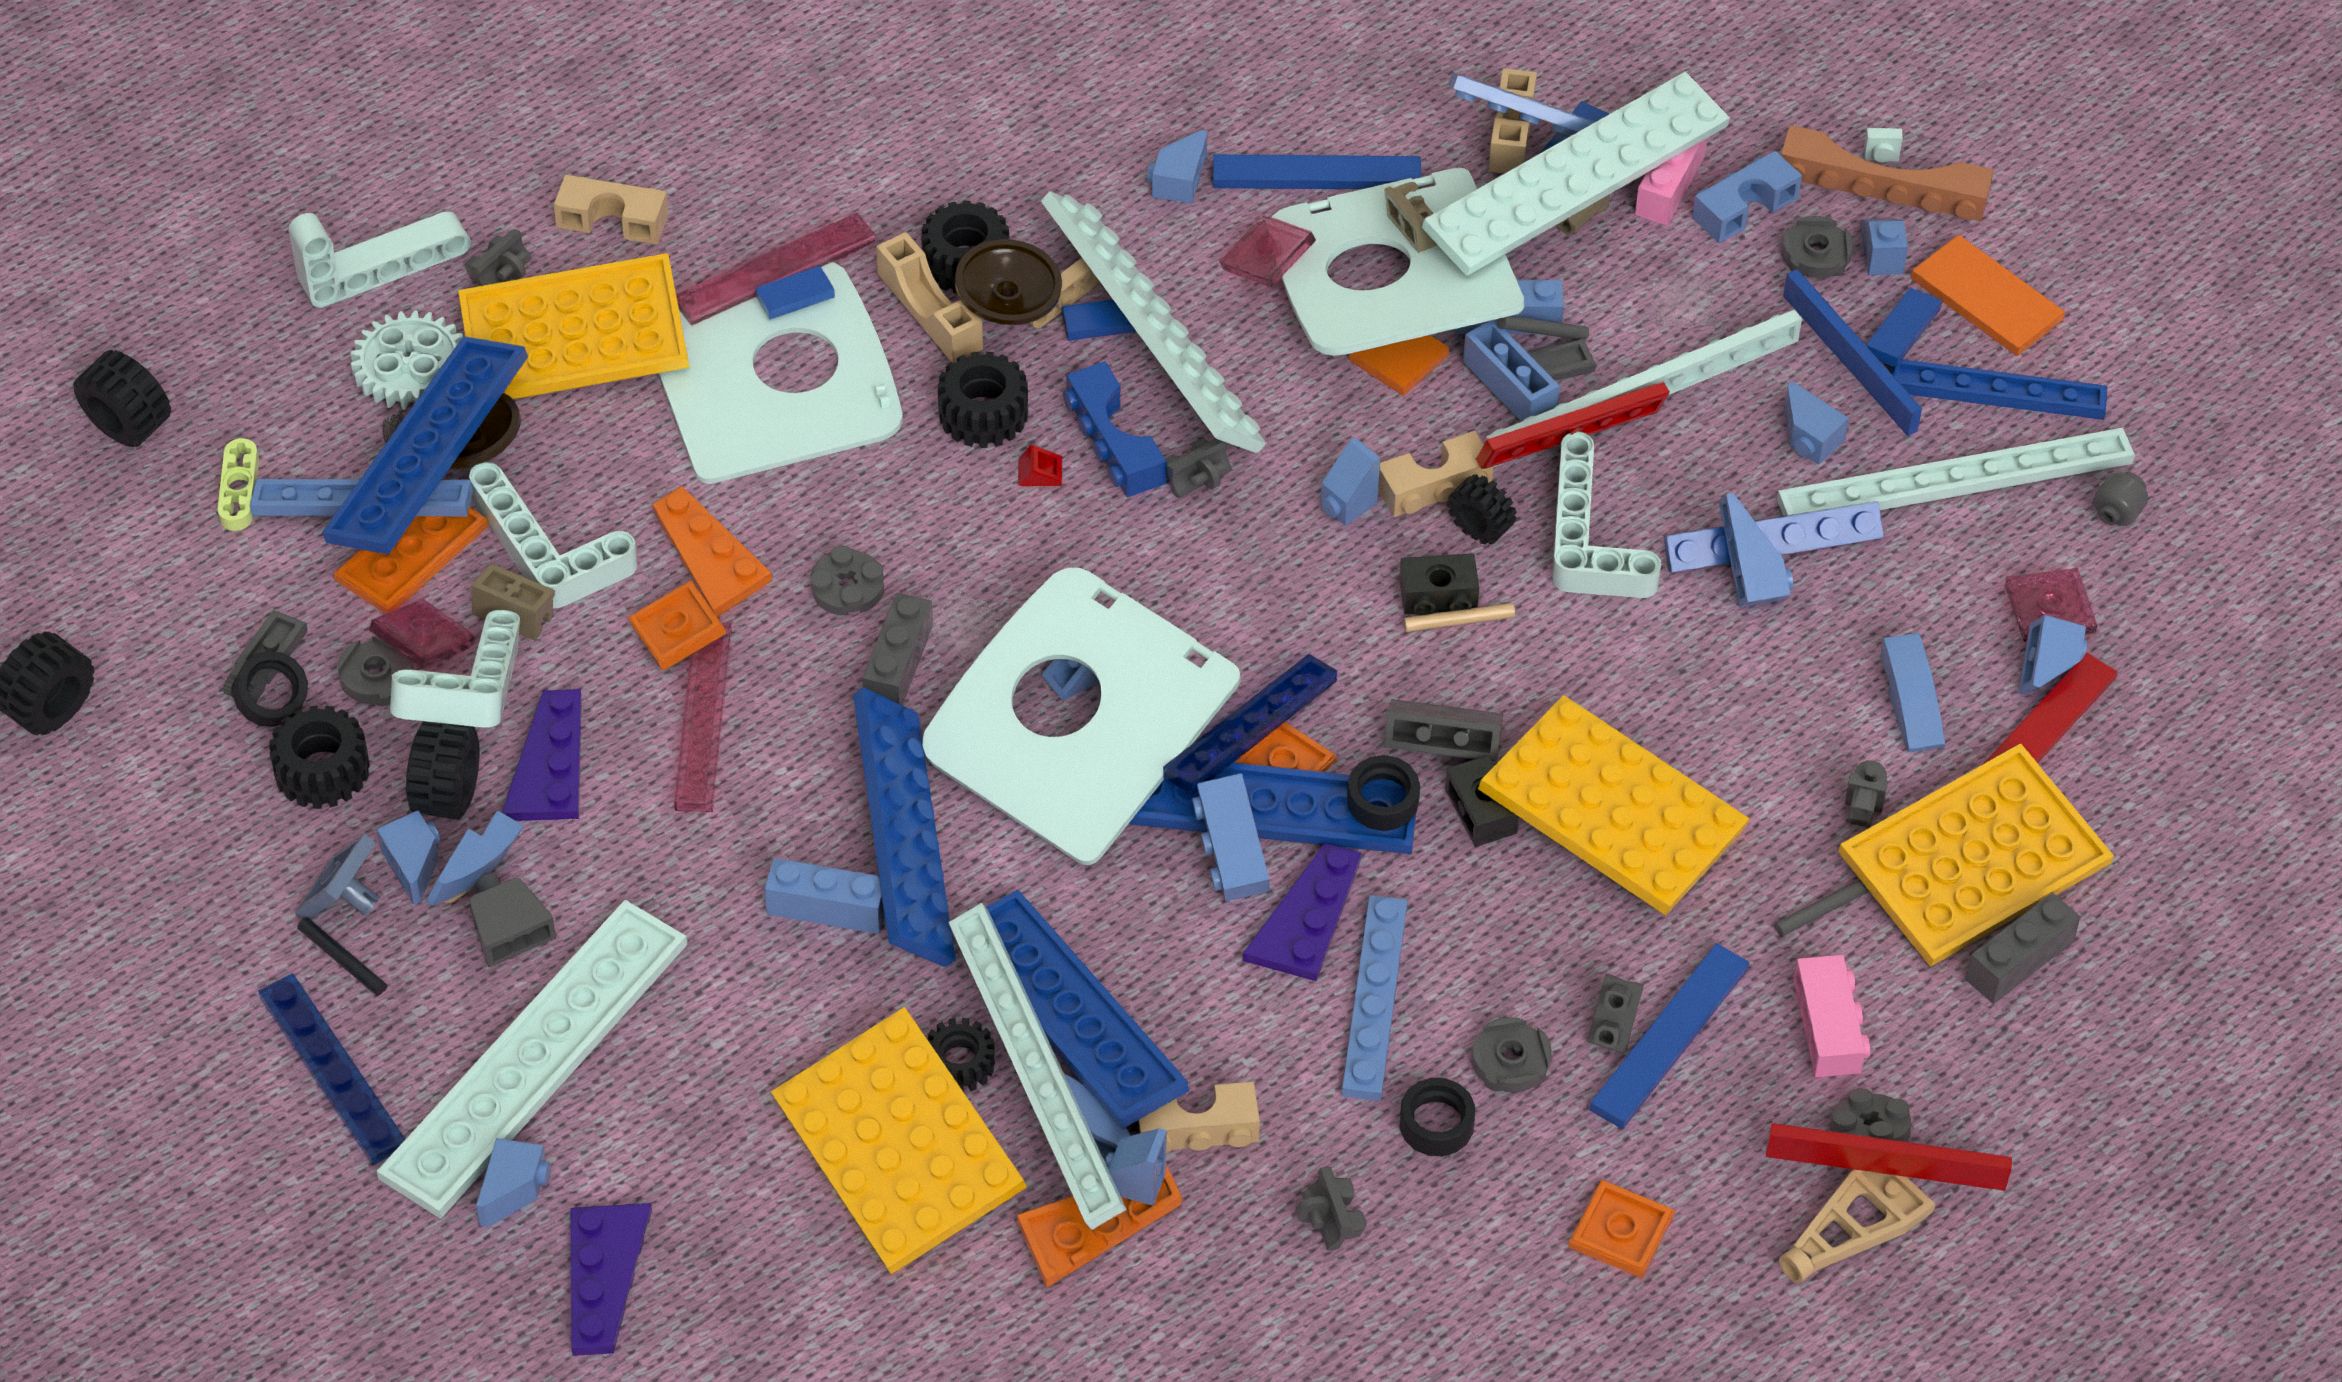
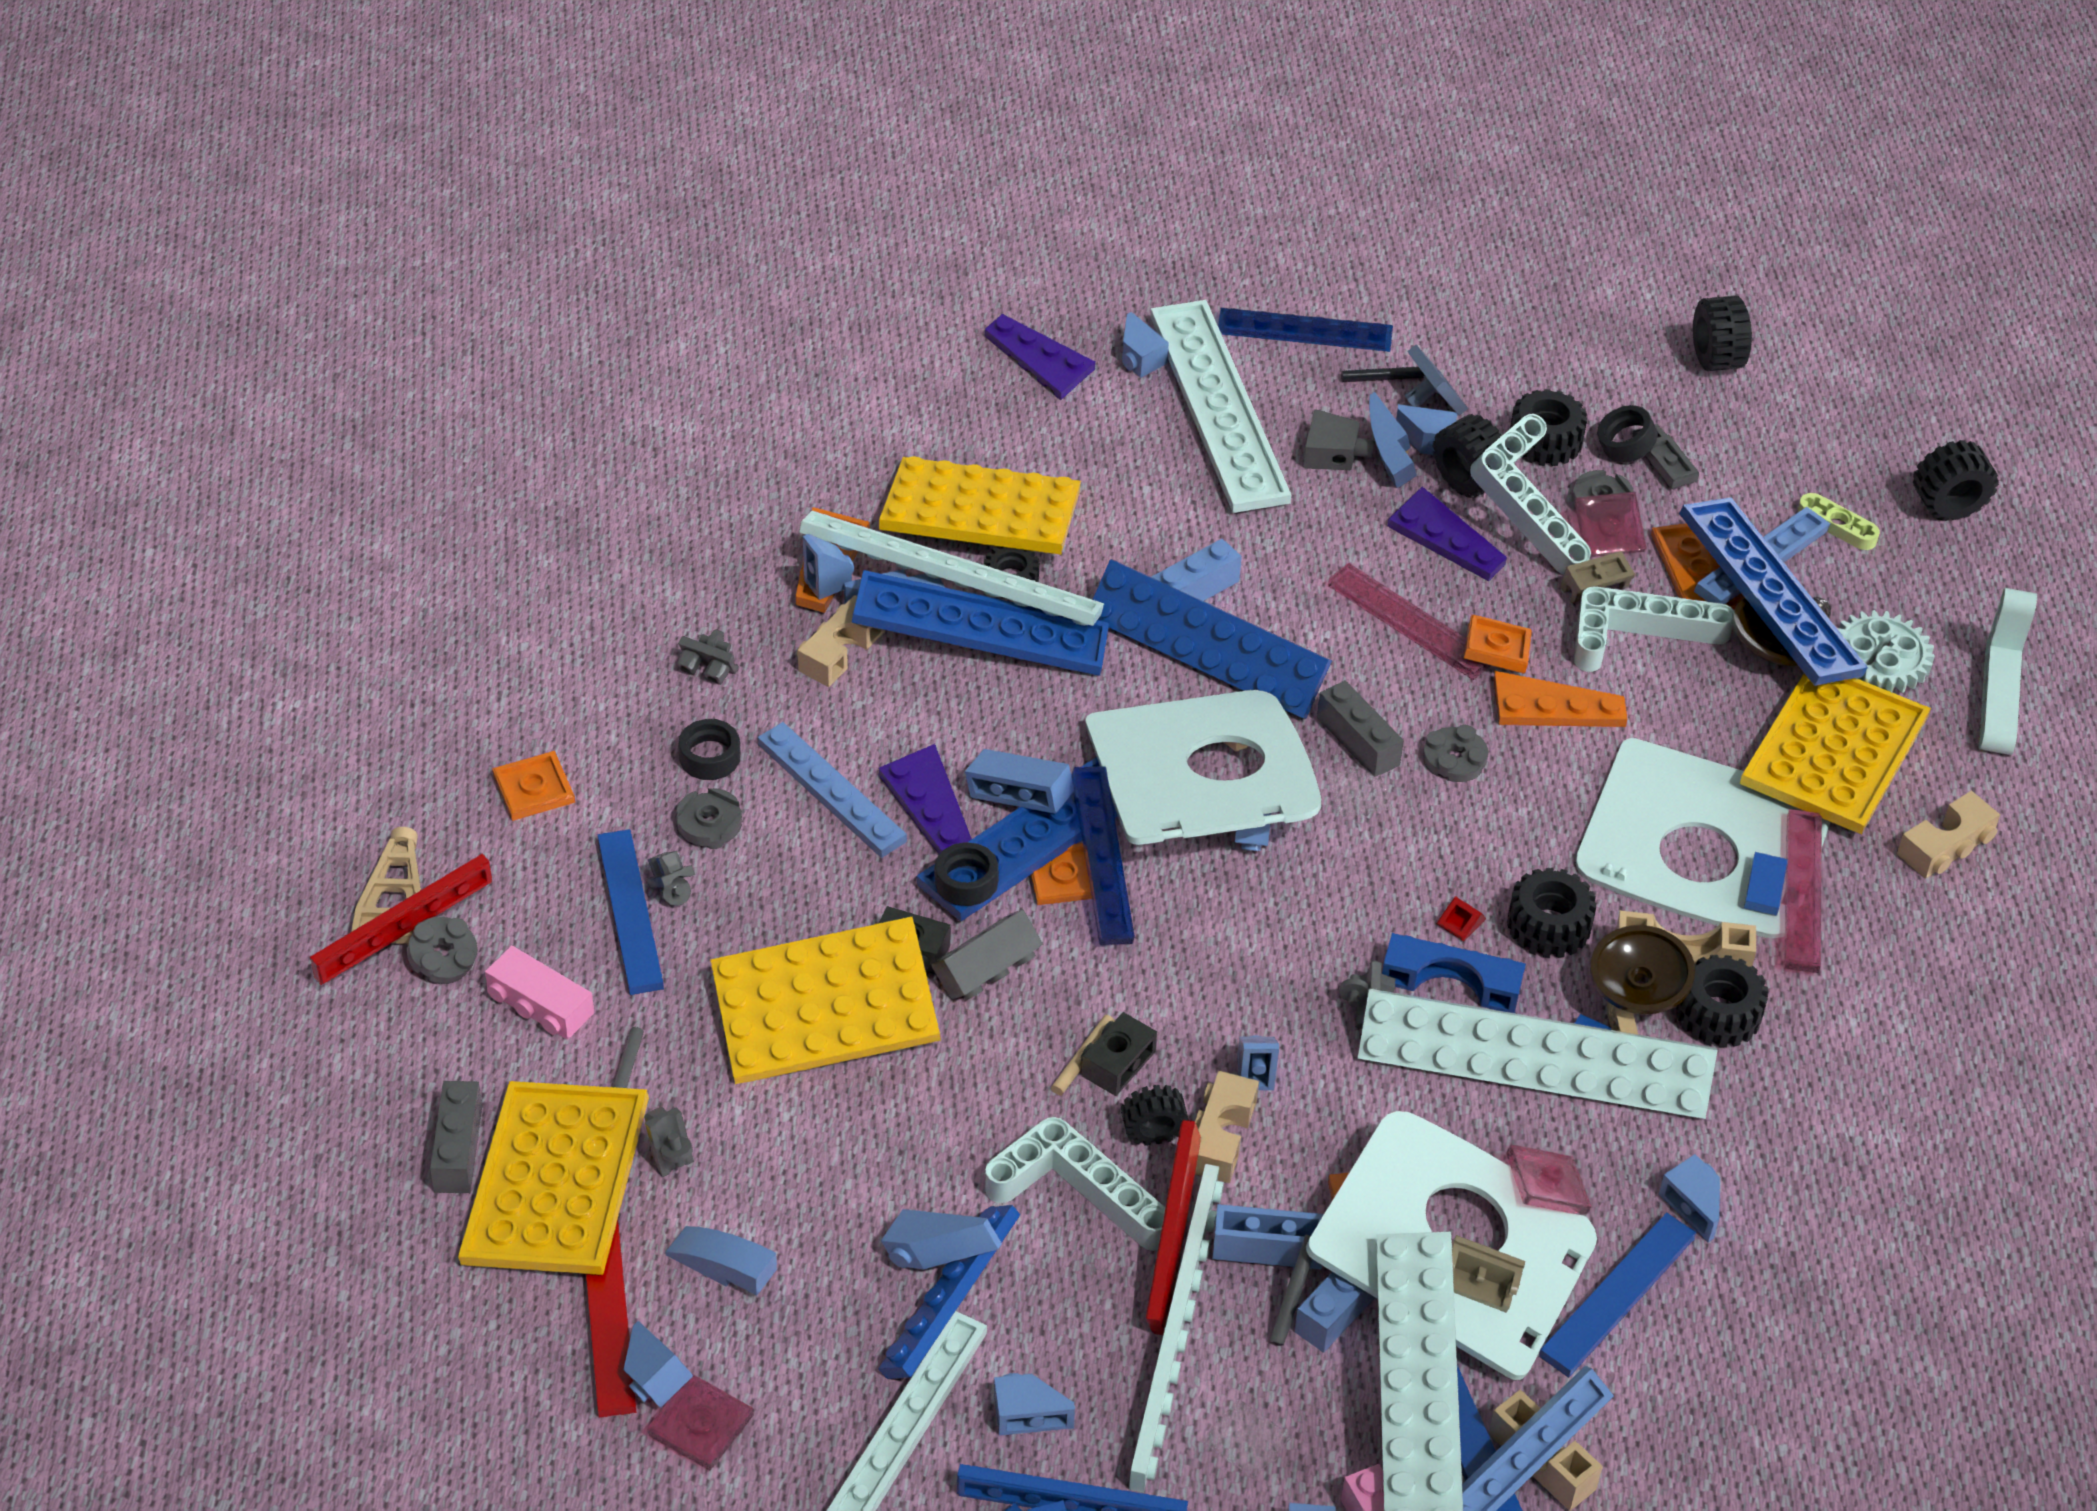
camera: 130 degrees right, 5 degrees down
(501, 262) = (1941, 745): dark grey hips -> none
(1565, 359) = (1263, 1299): dark grey tile -> none

